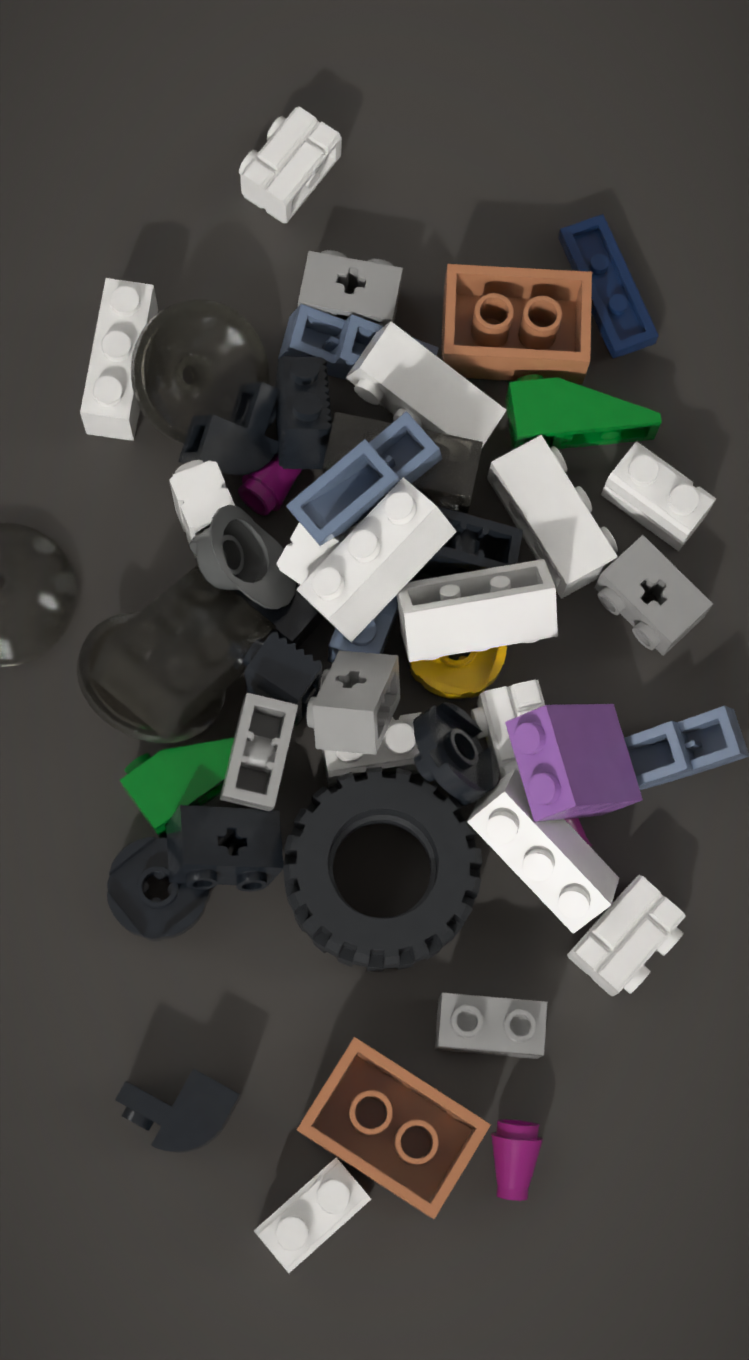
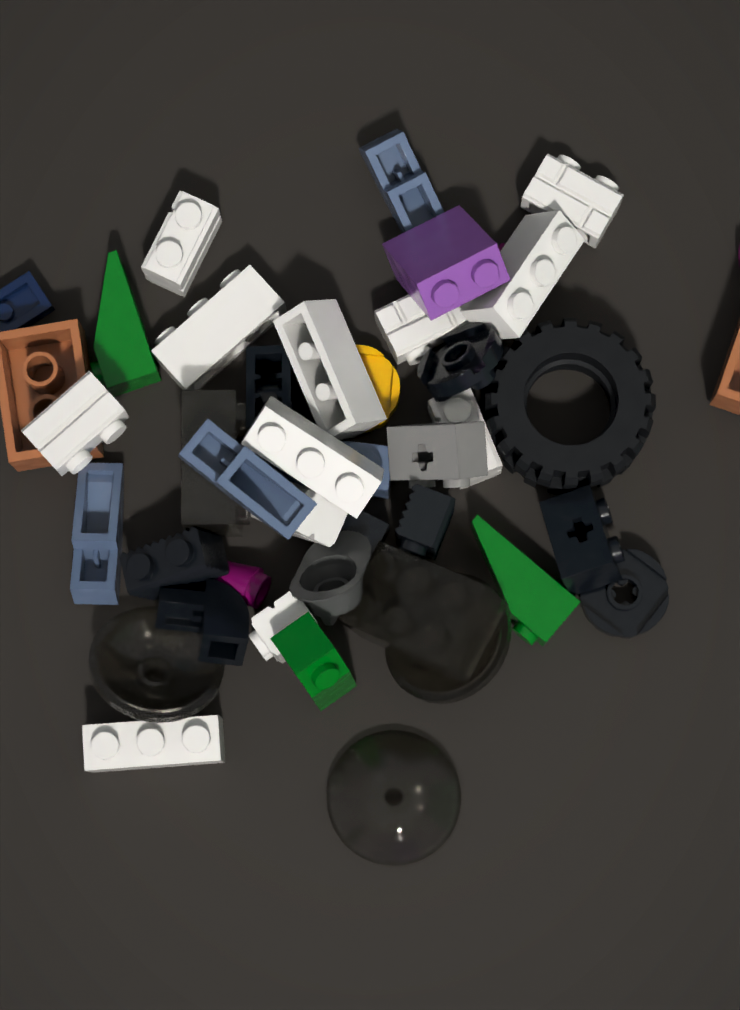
camera: 90 degrees left, 5 degrees up
(152, 516) = (314, 661): none -> green slope
(258, 752) = (503, 521): light grey brick -> none
(331, 275) = (29, 528): light grey brick -> none
(412, 379) = (134, 462): white brick -> none
(469, 330) = (76, 425): none -> white brick
(491, 1025) = (673, 293): light grey brick -> none
(644, 572) = (275, 210): light grey brick -> none

